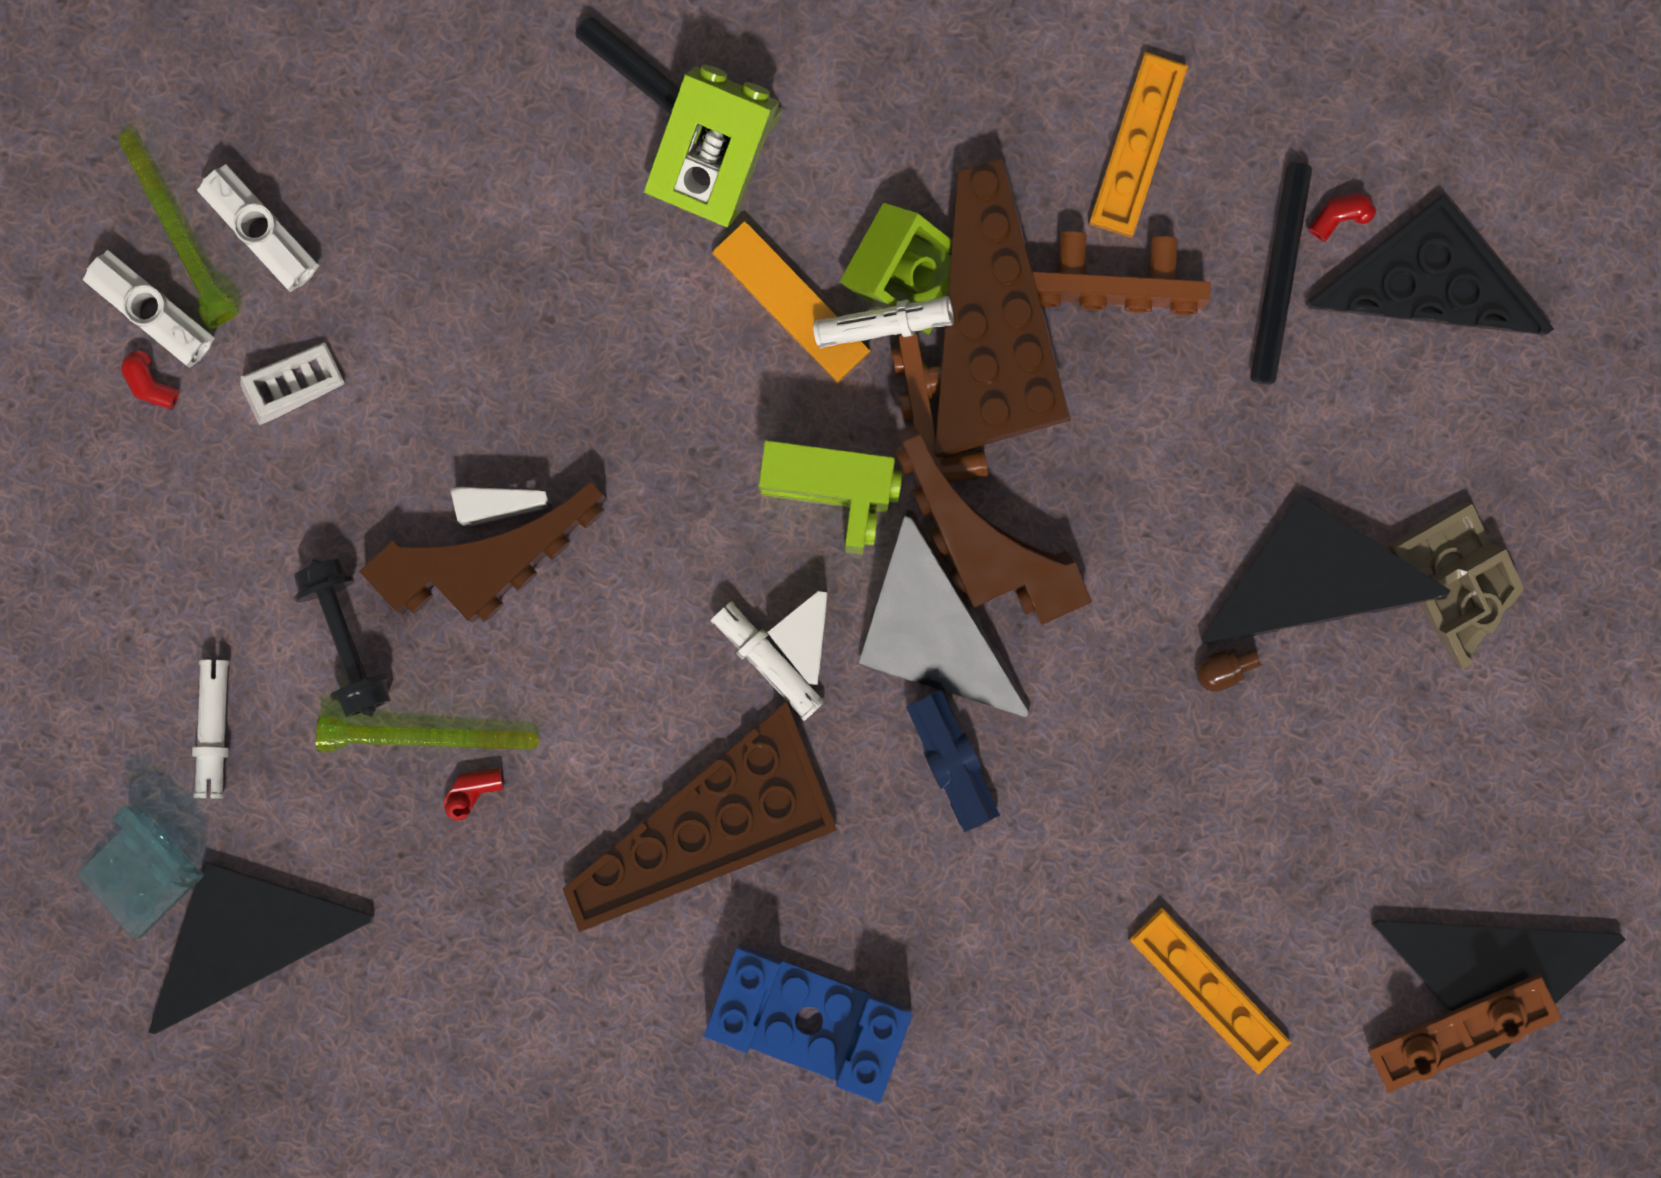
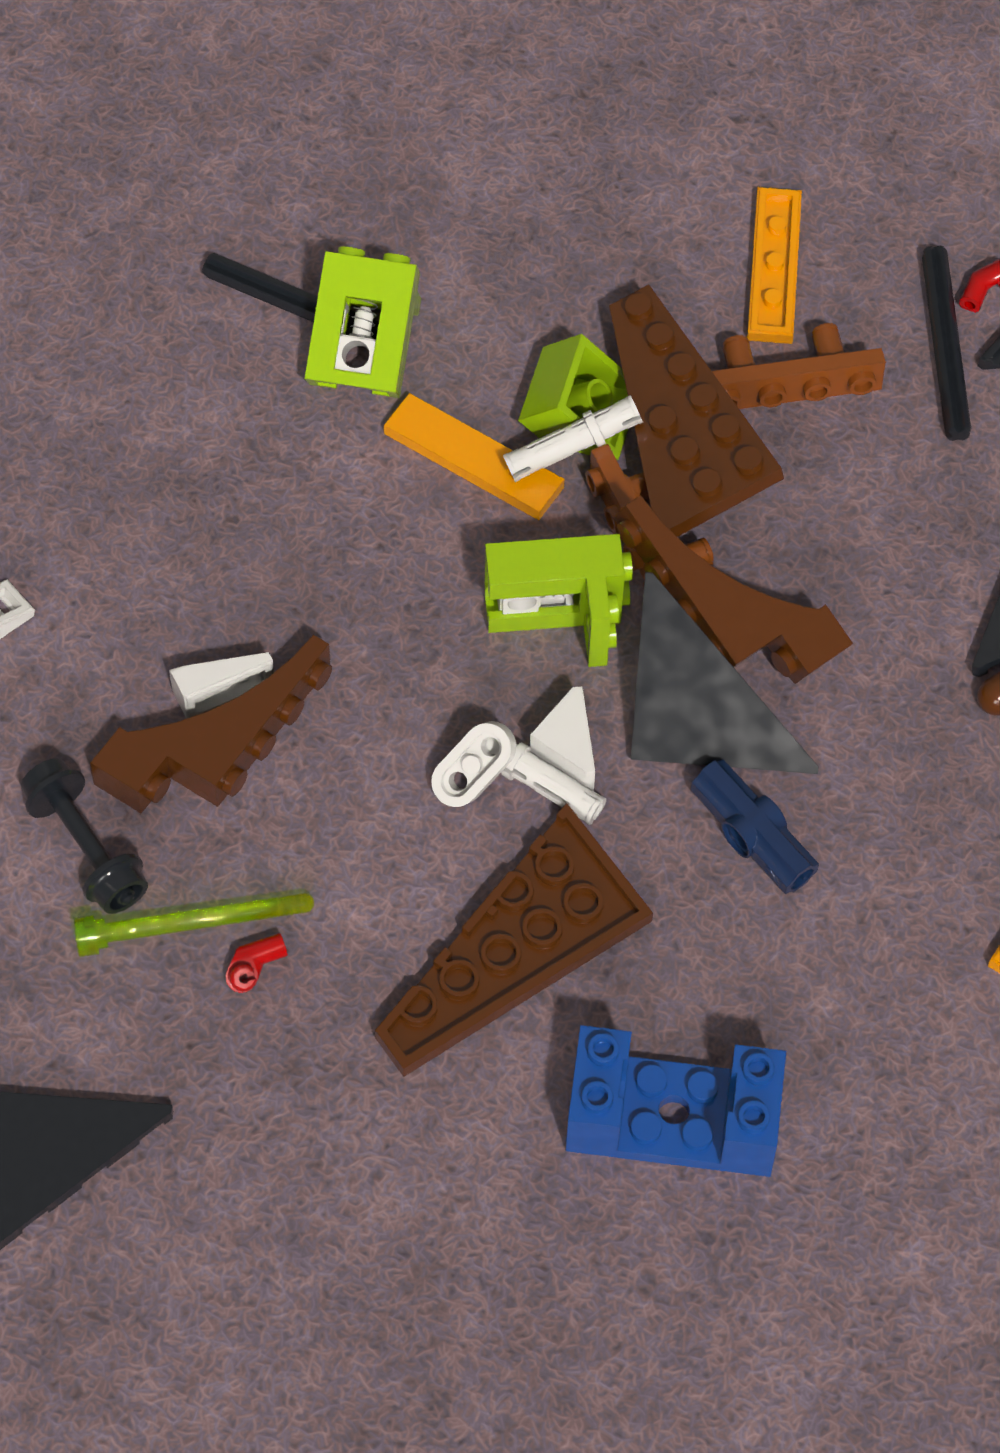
camera: 20 degrees left, 25 degrees down
(714, 646) = (475, 762): none -> white plate

